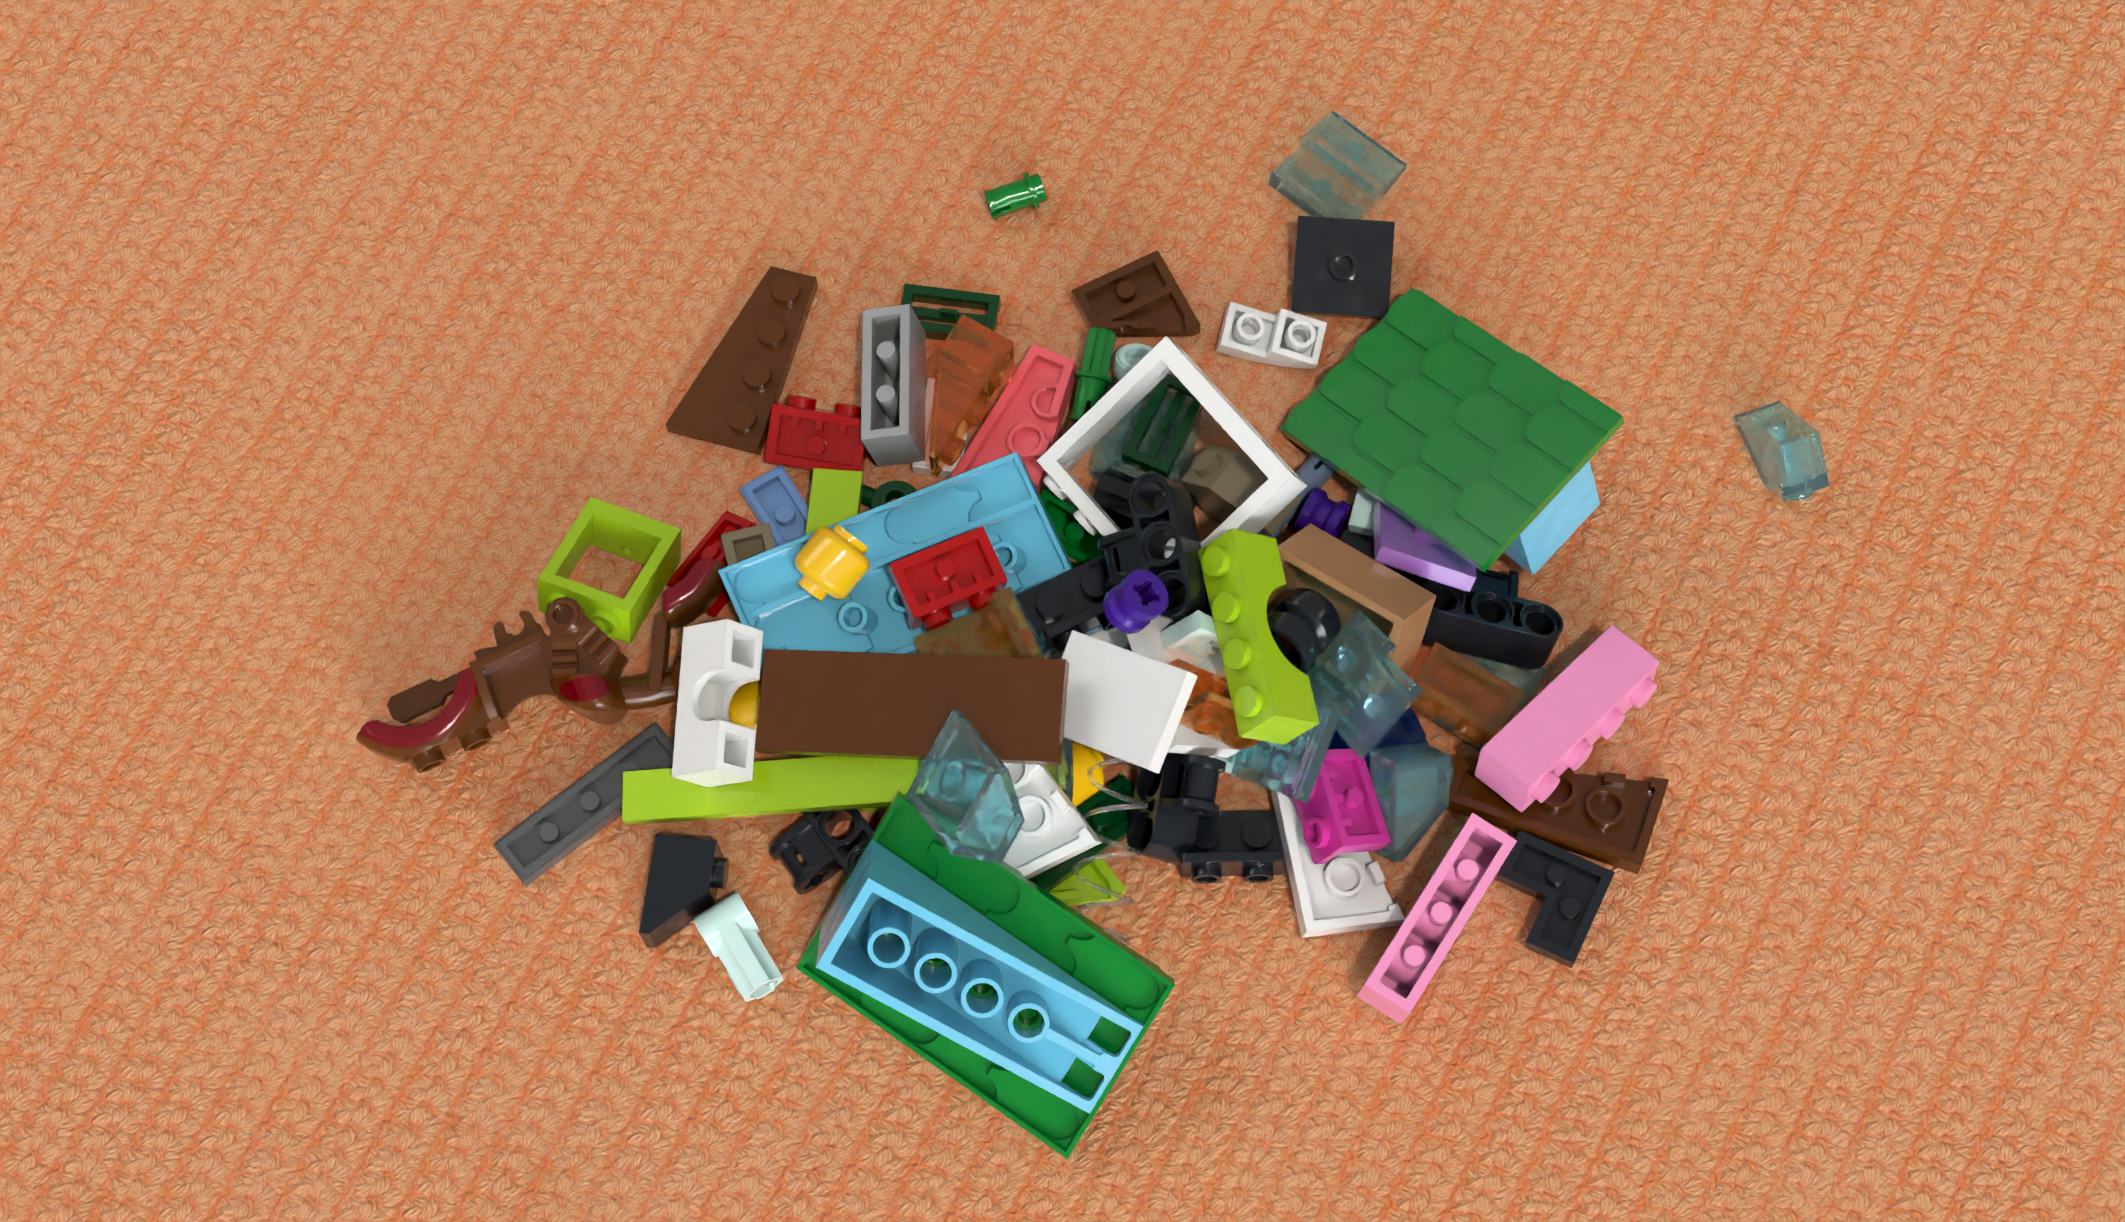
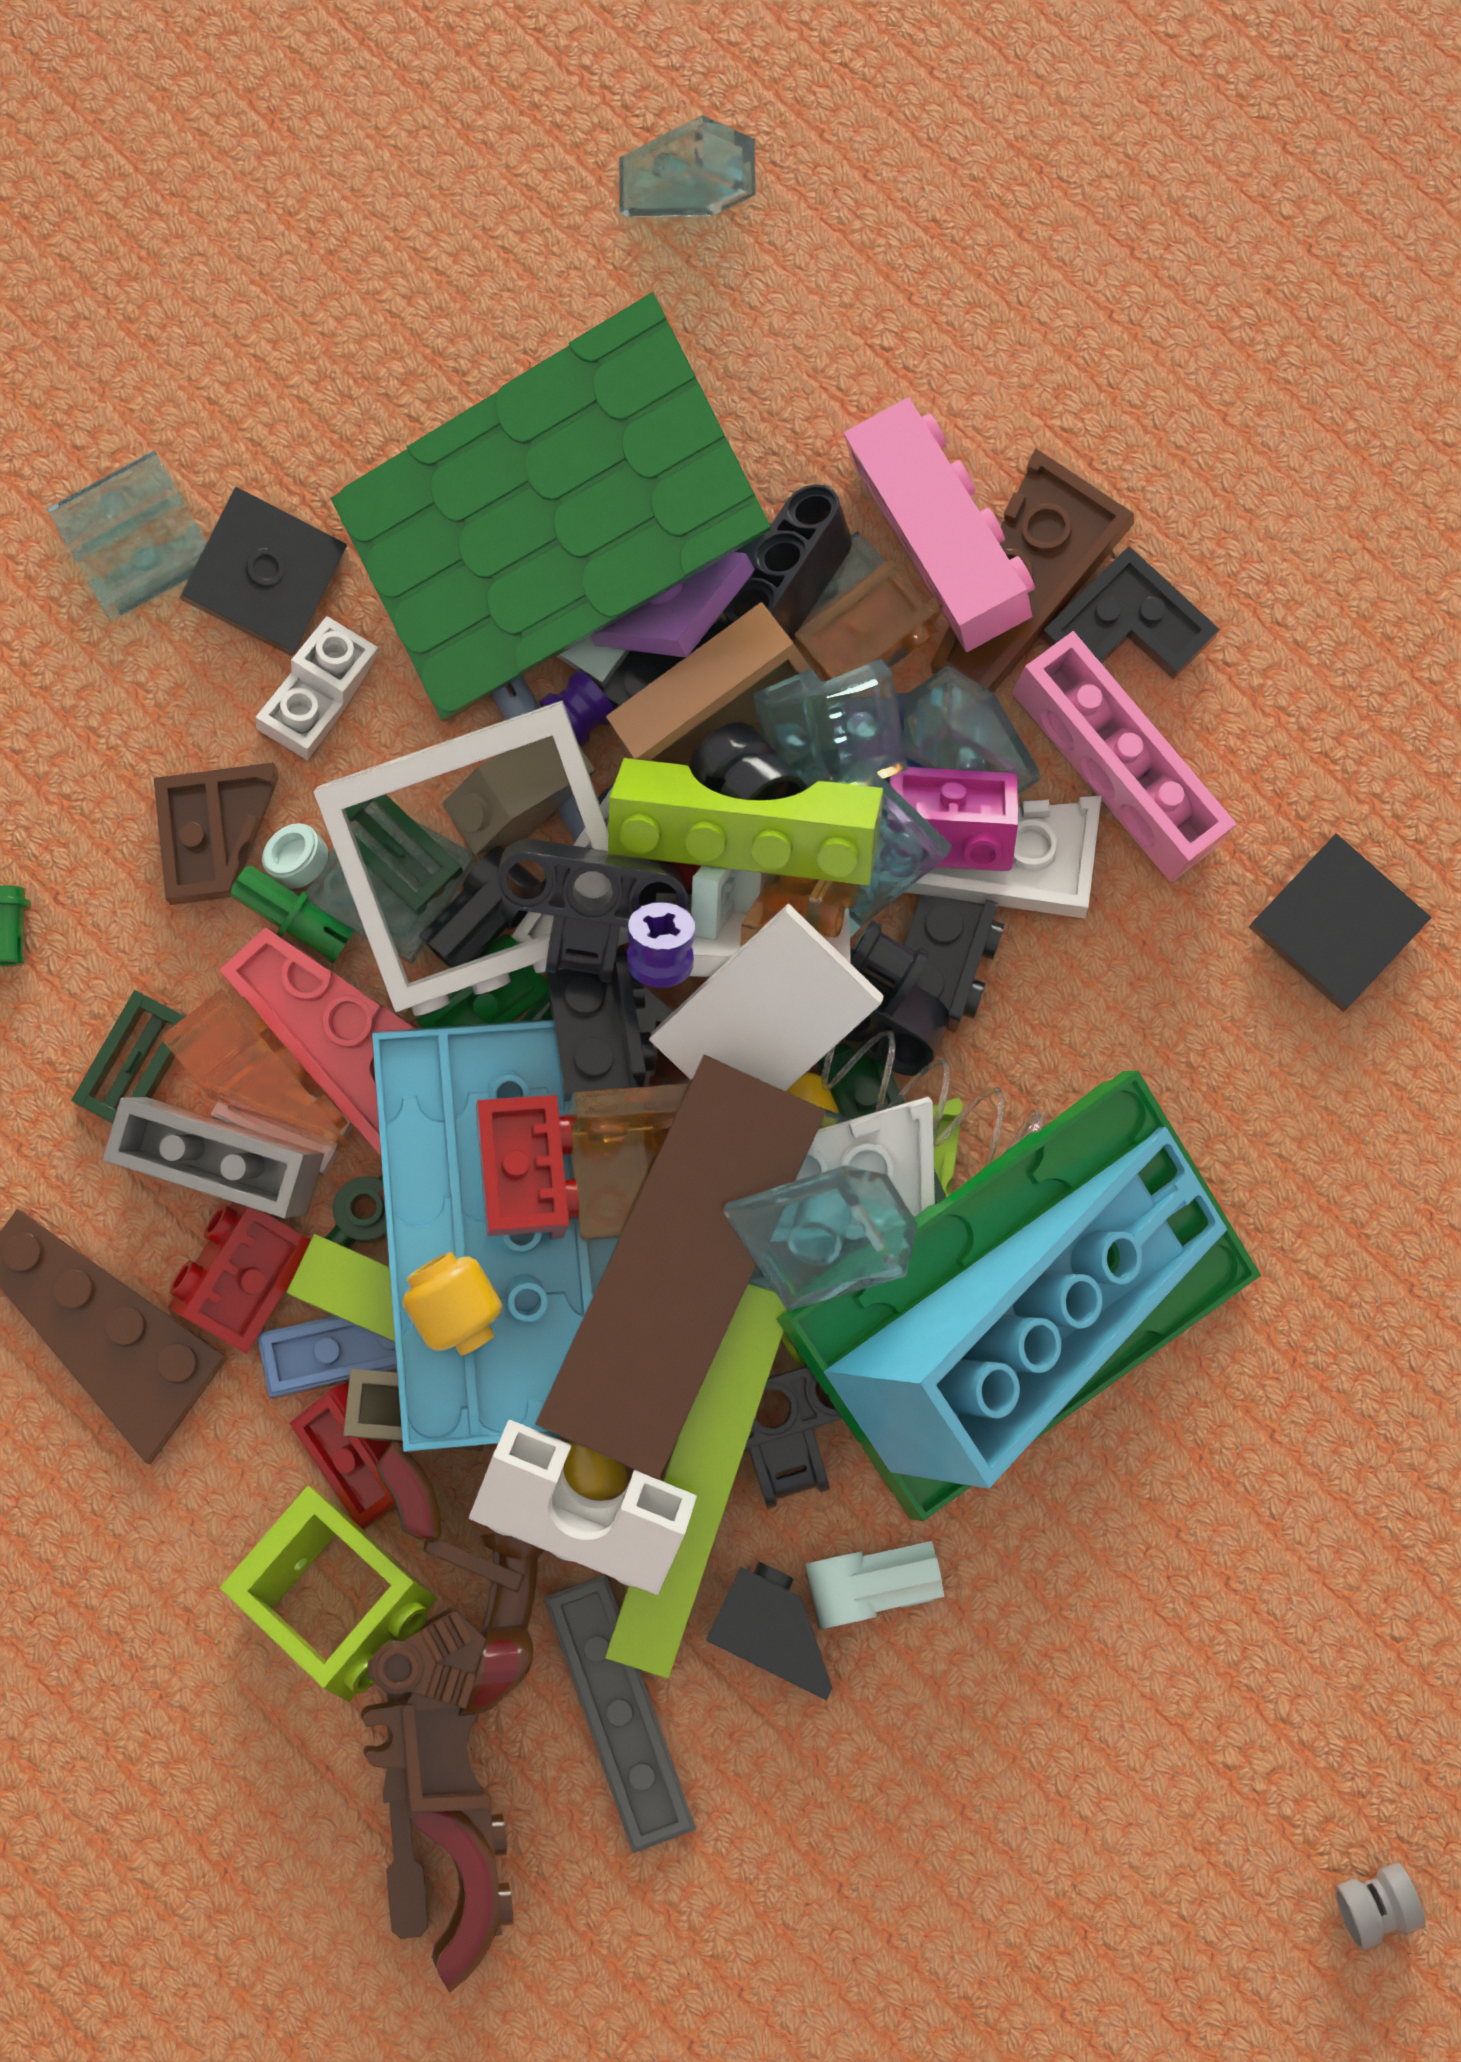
camera: 75 degrees left, 10 degrees up
(1371, 1133) = (1339, 922): none -> black tile

